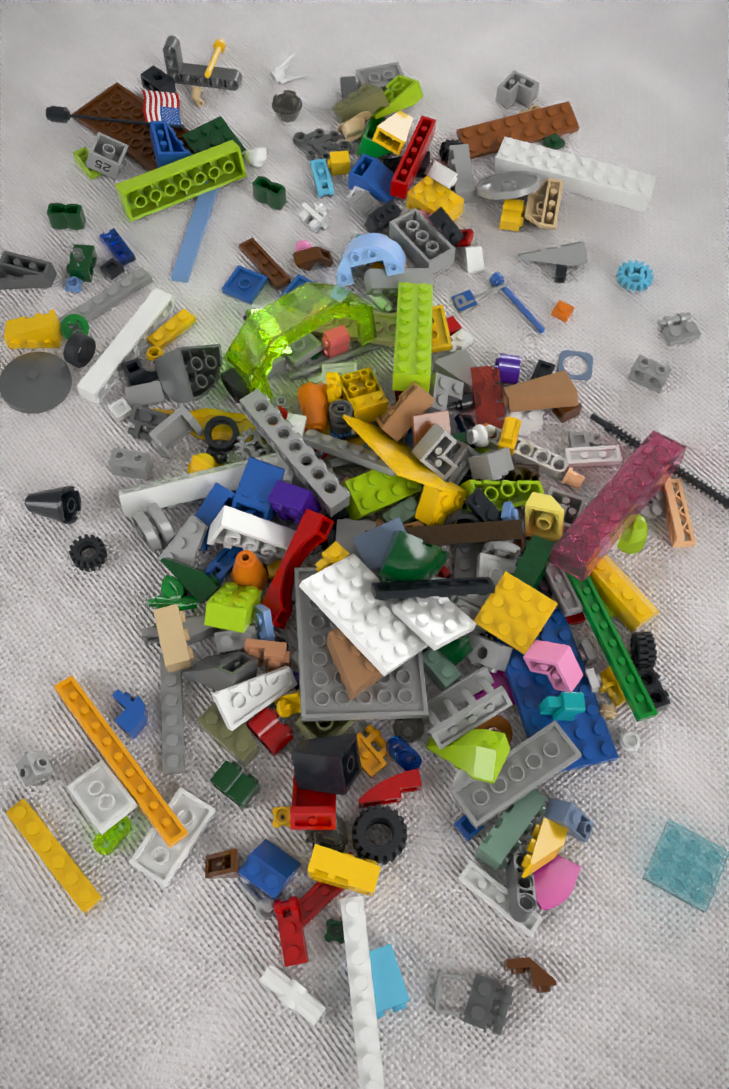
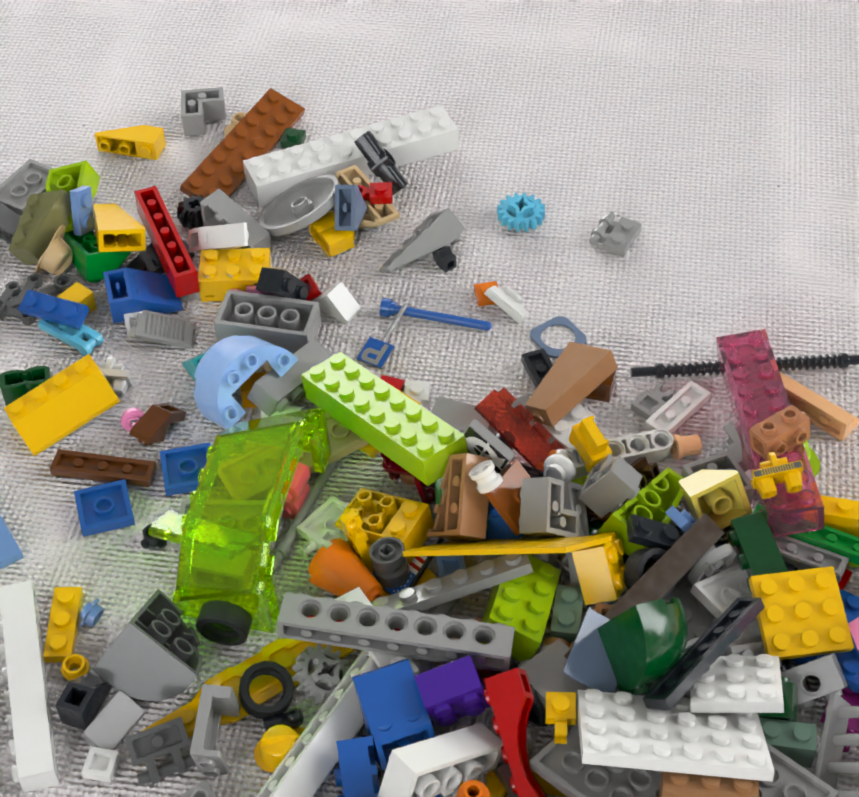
camera: 40 degrees left, 15 degrees down
(186, 333) = (91, 613): none -> medium blue plate
(274, 213) = (61, 404): none -> yellow slope
(321, 158) = (53, 309): none -> blue plate
(380, 219) = (195, 326): black brick -> none
(388, 107) = (82, 210): none -> medium blue plate
(418, 406) = (485, 476): none -> white wheel
(437, 390) = (485, 443): none -> tile
(464, 87) = (134, 141): none -> yellow slope
(509, 367) = (502, 377): dark purple brick -> none
(528, 204) = (348, 207): none -> sand blue slope
(554, 206) = (377, 193): none -> red plate
(567, 323) = (508, 301): none -> white plate
(577, 526) = (776, 472): none -> yellow hips
(580, 189) = (380, 161): none -> black piece
(610, 508) = (780, 432): none -> nougat brick
(649, 373) = (641, 293): light grey brick -> none

